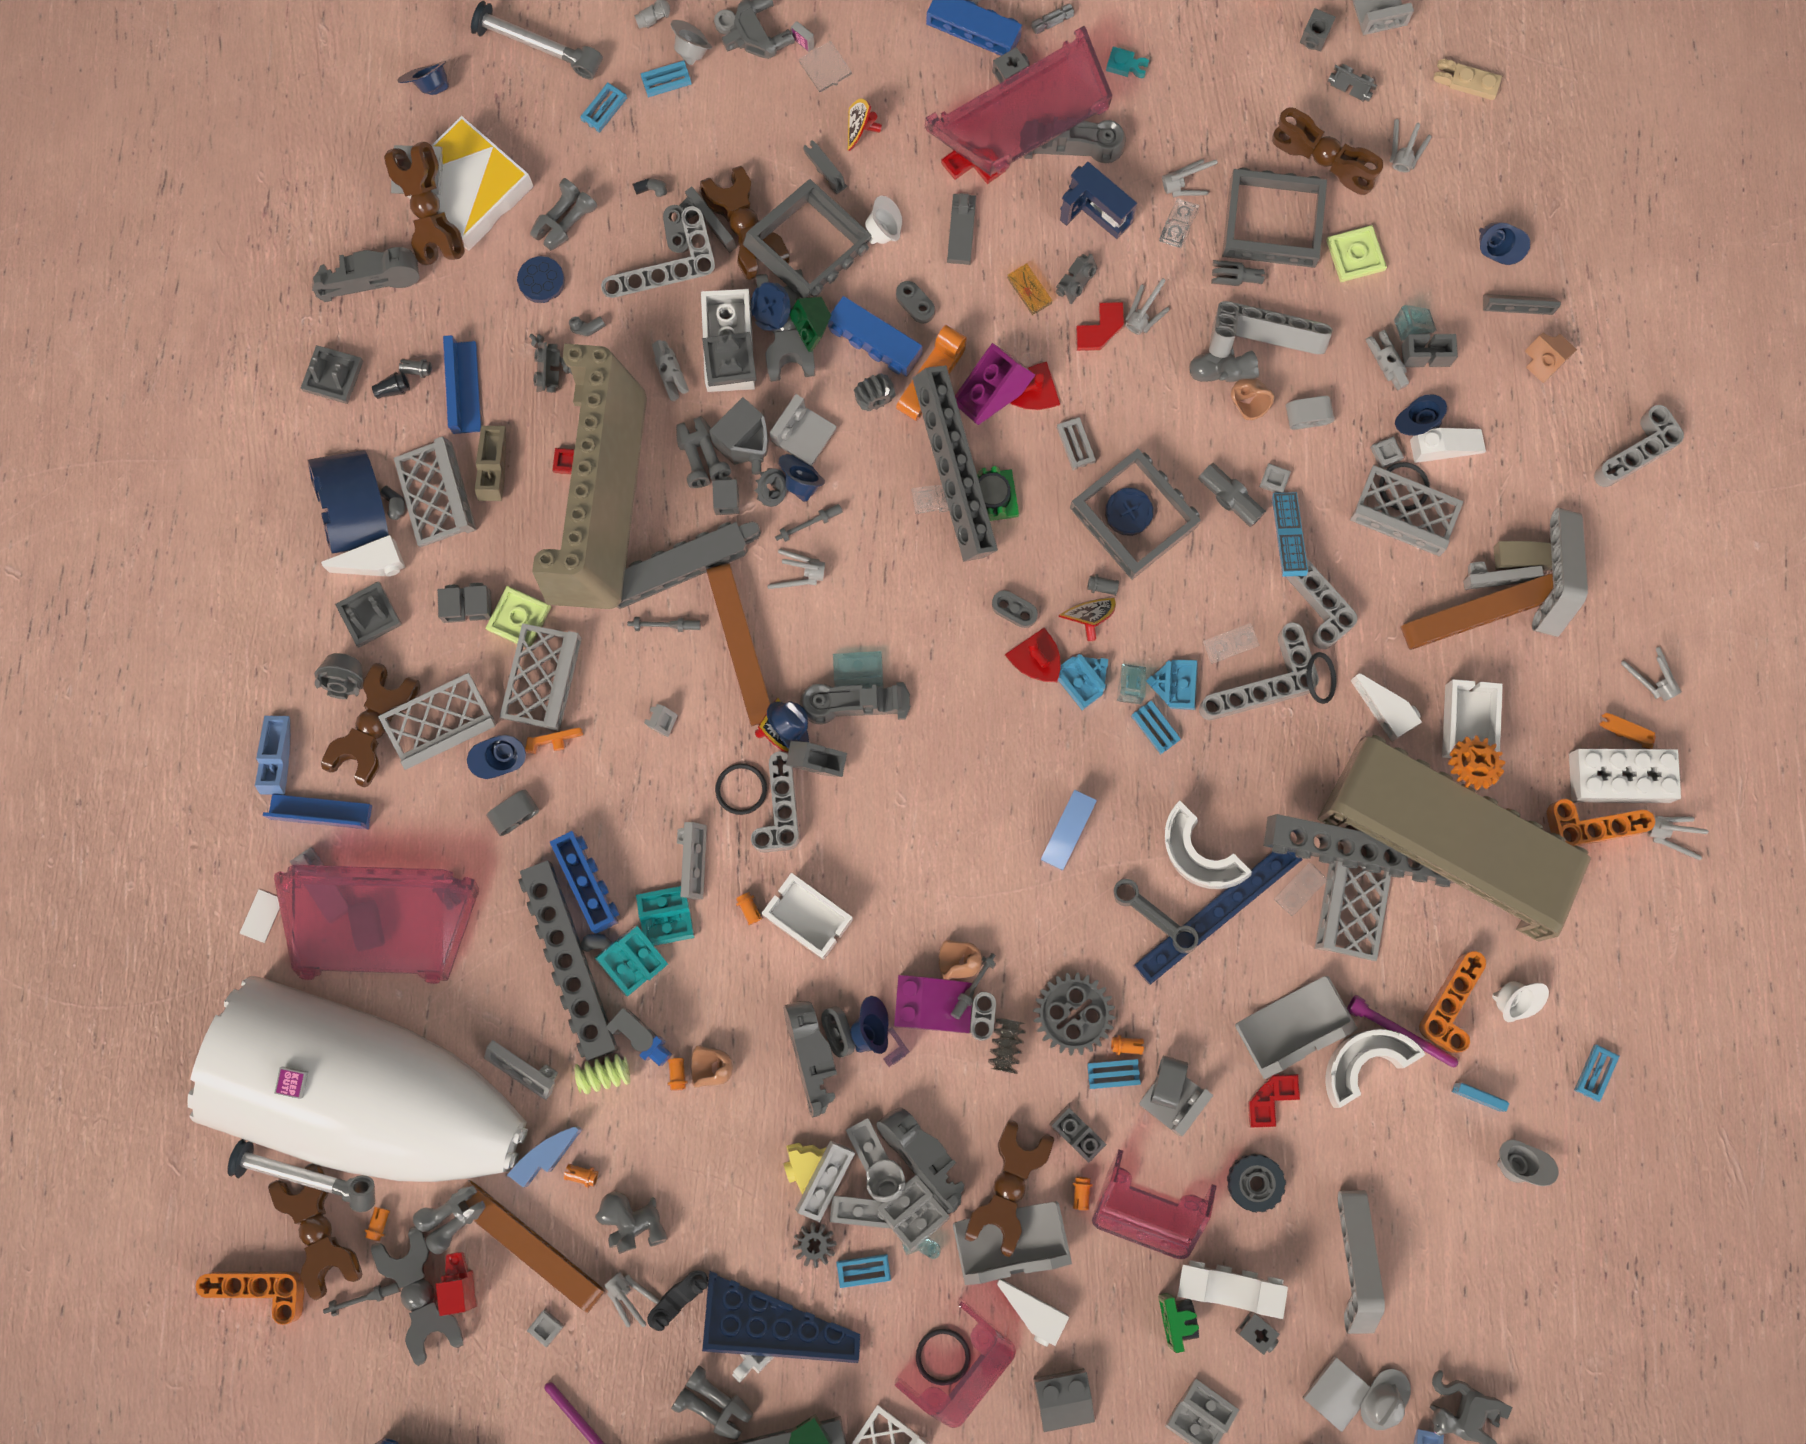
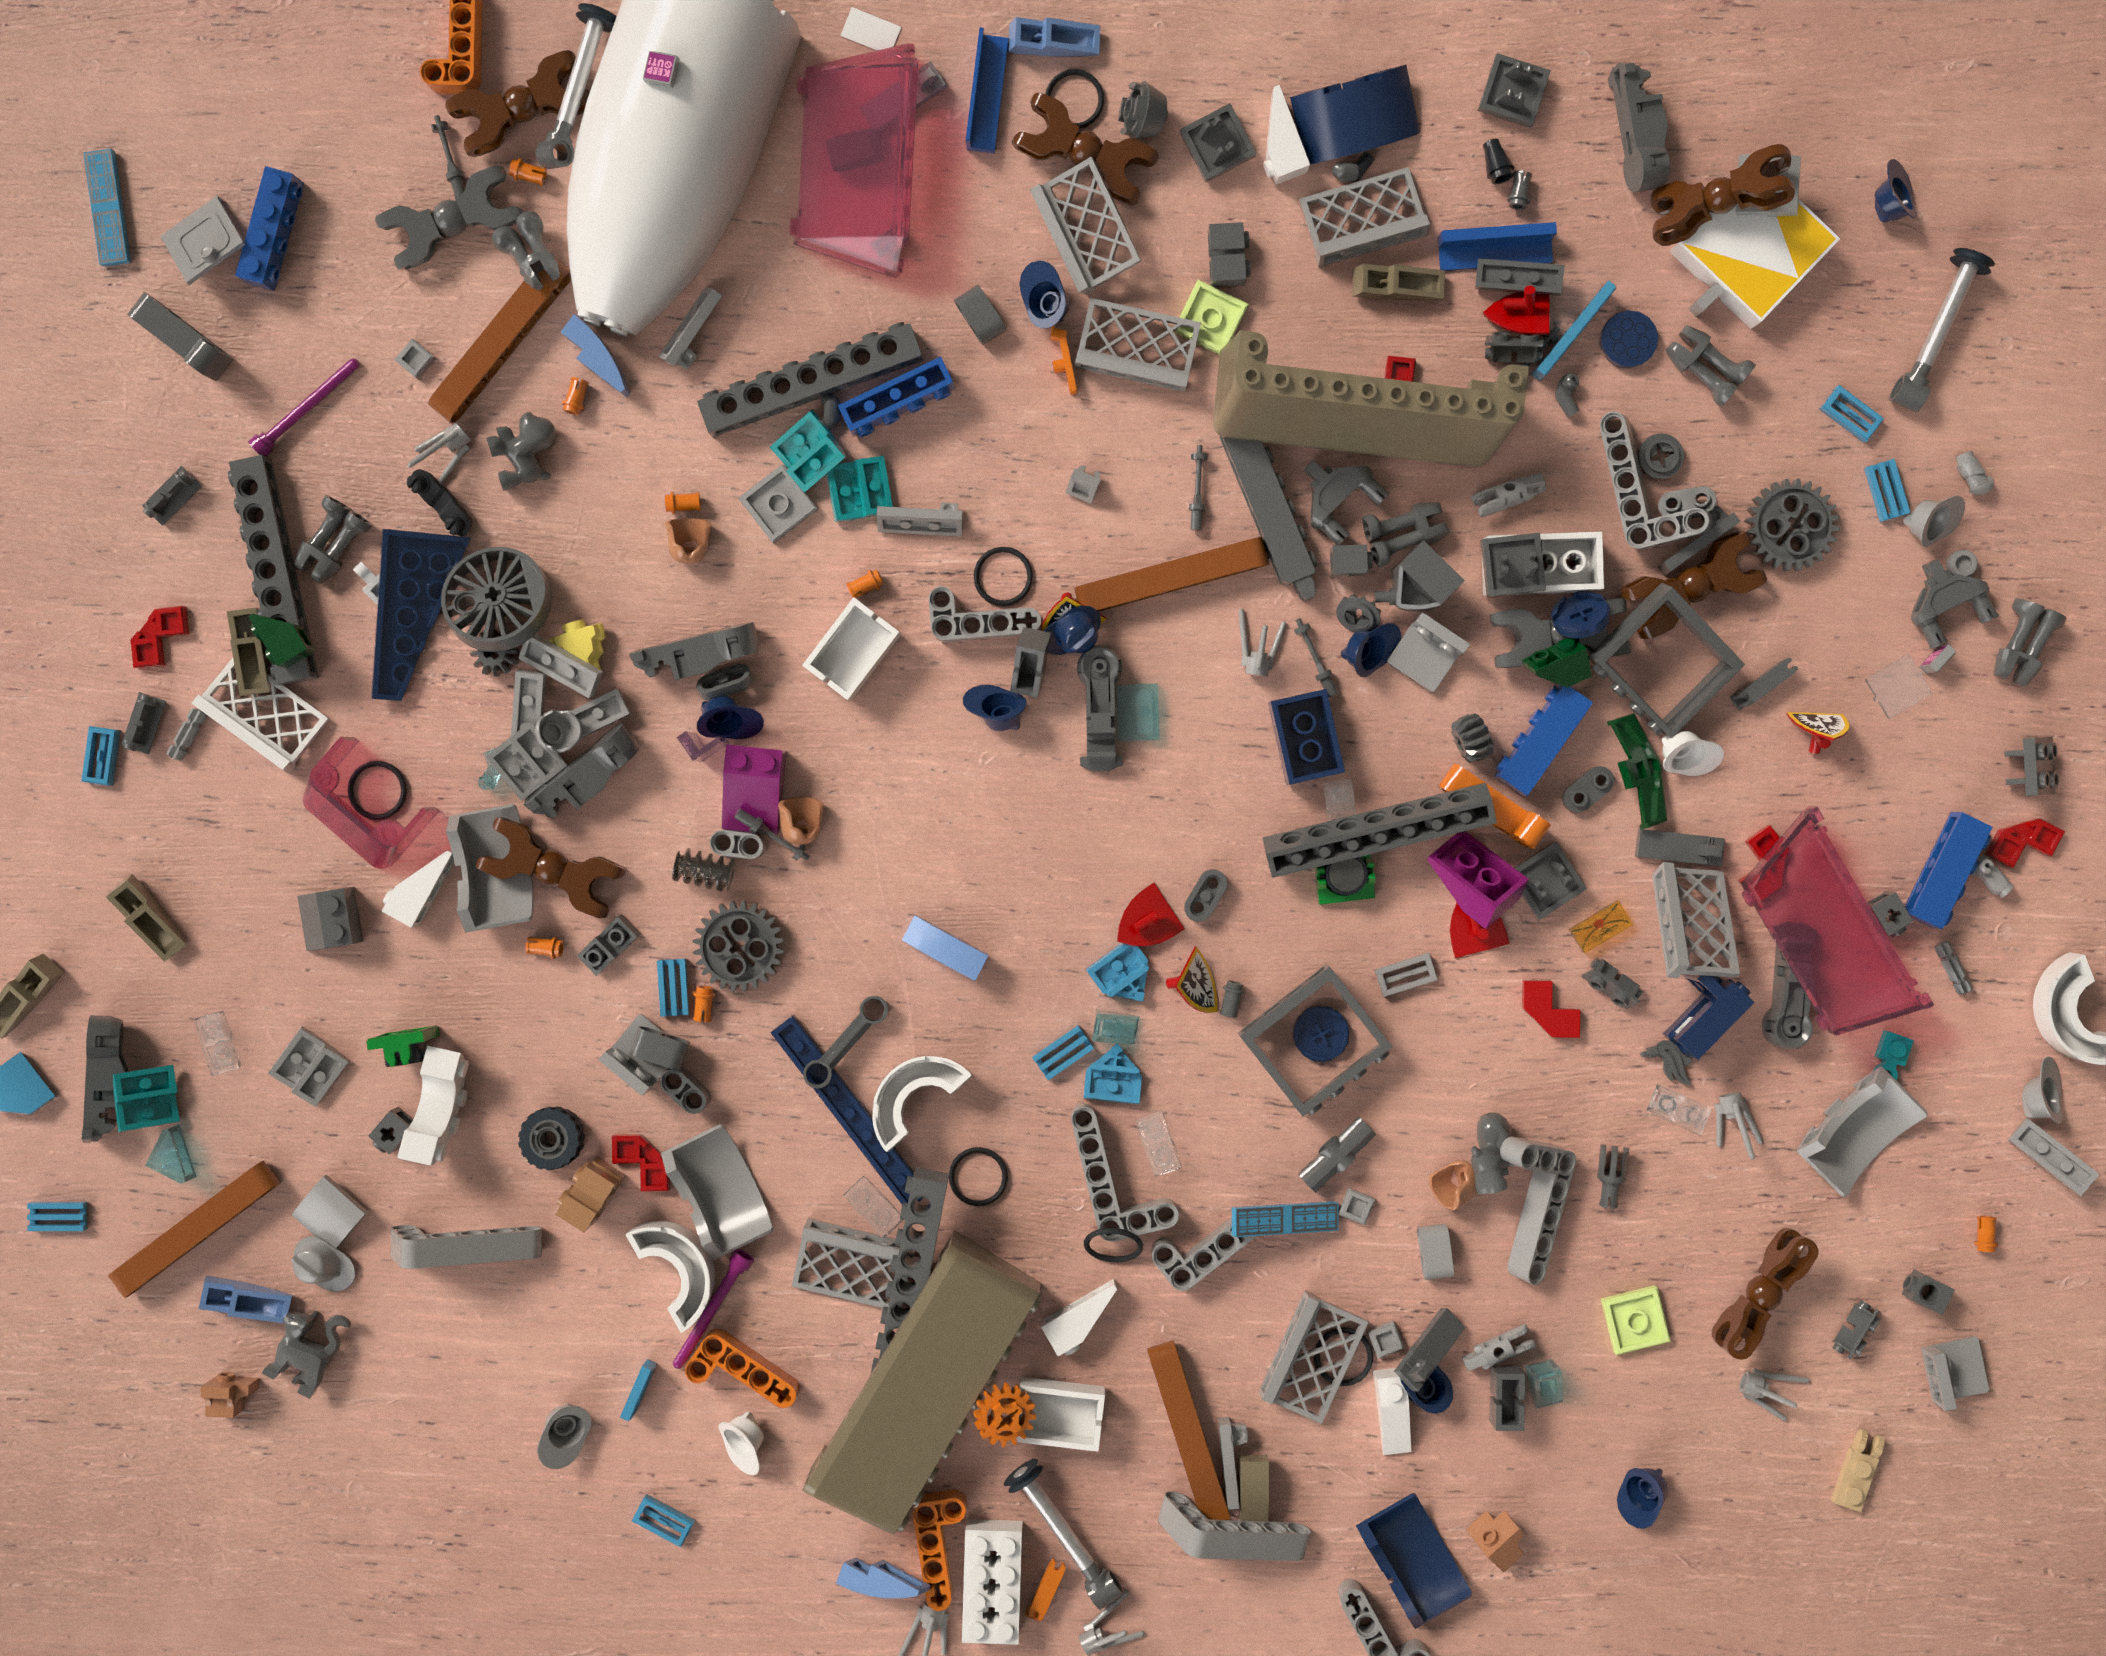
camera: 85 degrees right, 10 degrees up
(310, 722) = (1091, 78): none -> black tyre
(457, 1287) = (451, 261): red hinge -> none
(488, 365) = (1516, 275): none -> dark grey hinge
(509, 219) = (1706, 299): none -> light grey tile
(517, 362) = (1521, 312): none -> red shield
(530, 319) = (1574, 330): none -> dark azure tile
(602, 1074) = (682, 419): yellowish green piece -> none
(628, 248) = (1666, 444): none -> dark grey gear
(641, 1037) = (721, 462): dark grey hips -> none
(650, 184) = (1747, 473): arm -> none
(665, 512) = (1332, 488): none -> dark grey connector
(678, 988) = (777, 504): none -> light grey tile
(707, 133) = (1811, 540): none -> dark grey gear
(765, 1229) = (496, 598): none -> dark grey piece
(841, 1274) = (479, 705): dark azure tile -> none
(854, 790) = (996, 706): none -> dark blue piece
(877, 527) = (1306, 737): none -> dark blue brick
(898, 259) = (1641, 770): none -> dark green plate
(992, 326) = (1550, 880): none -> dark grey plate
(1023, 227) = (1673, 928): none -> light grey fence
(1137, 230) = (1672, 1060): none -> dark grey piece
(1138, 321) = (1555, 1055): light grey plant -> none
(1149, 1218) = (516, 1022): clear pink windscreen -> none
(1187, 84) = (1859, 1129): none -> light grey panel
(1208, 1062) = (682, 1093): none -> dark grey beam
(1261, 776) = (958, 1194): none -> black tyre
(1273, 252) = (1638, 1217): dark grey window -> none
(1307, 1143) = (590, 1194): none -> medium nougat brick
(1393, 413) = (1429, 1349): none -> dark grey hinge
(1520, 304) = (1566, 1510): dark grey slope -> none
(1574, 422) = (1416, 1559): none -> dark blue panel
(1615, 684) = (1099, 1583): none -> piece
(1633, 872) = (879, 1580): none -> medium blue slope

